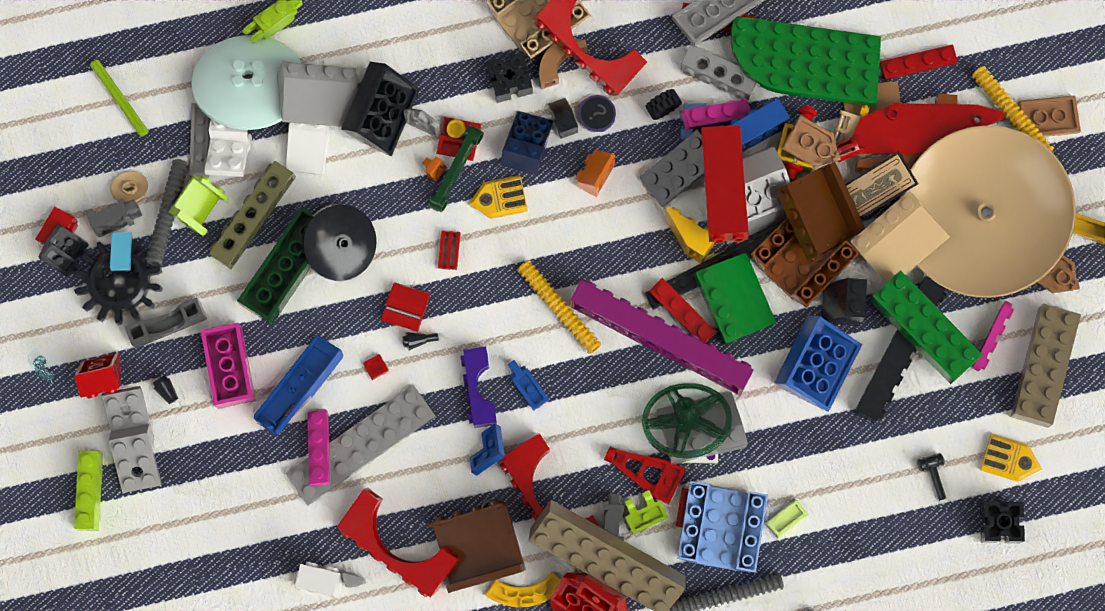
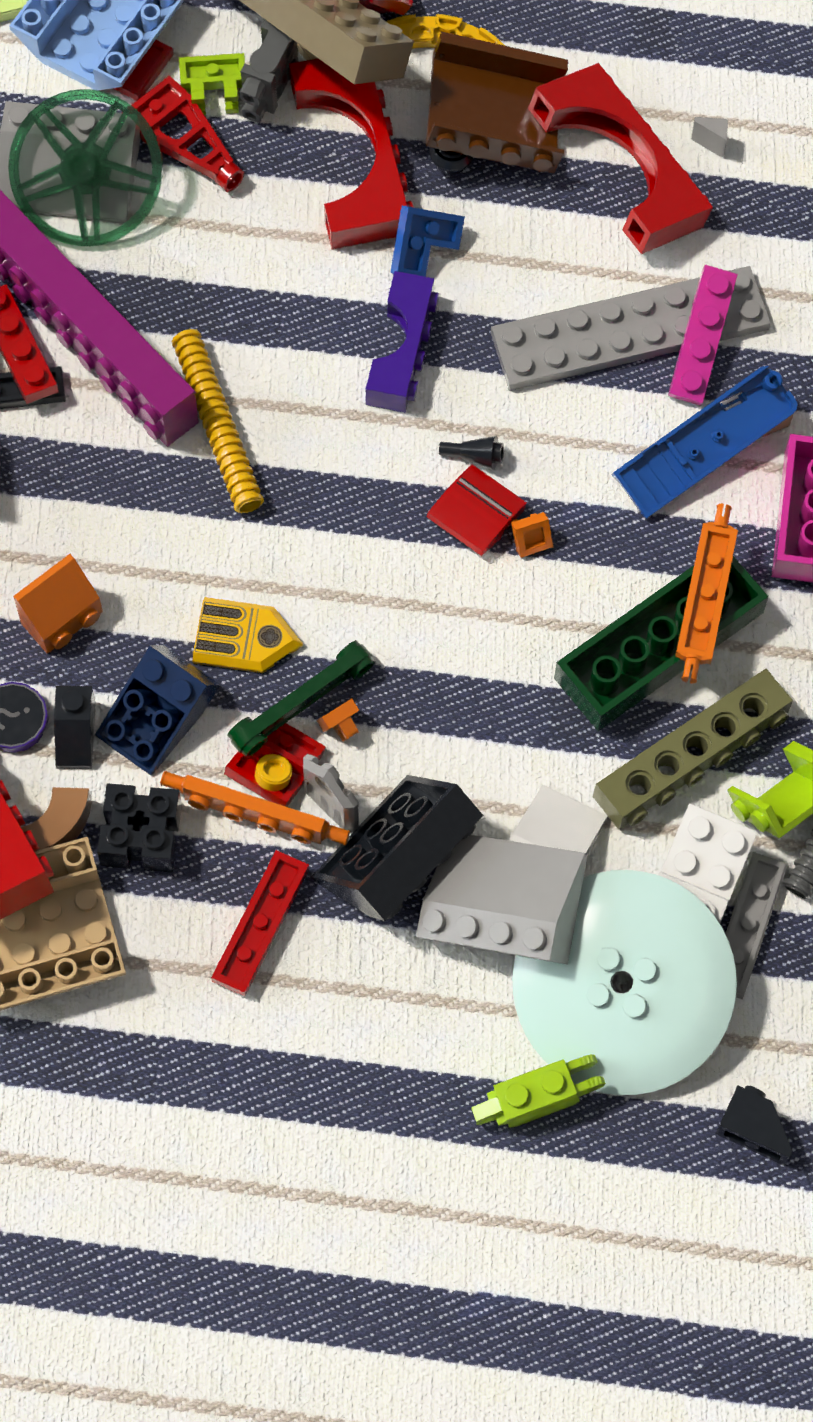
camera: 165 degrees left, 10 degrees down
(170, 43) = (755, 1125): none -> black slope
(267, 285) = (706, 593): none -> orange plate
(319, 581) = (767, 139): white brick -> none
(323, 242) = (555, 636): black dish -> none
(372, 301) = (532, 534): none -> orange tile
(376, 367) = (562, 436): red tile -> none
(434, 55) = (260, 923): none -> red plate
(451, 234) = (378, 554): red tile -> none
(466, 106) = (267, 815): none -> orange plate
(527, 386) = (320, 320): blue hinge -> none

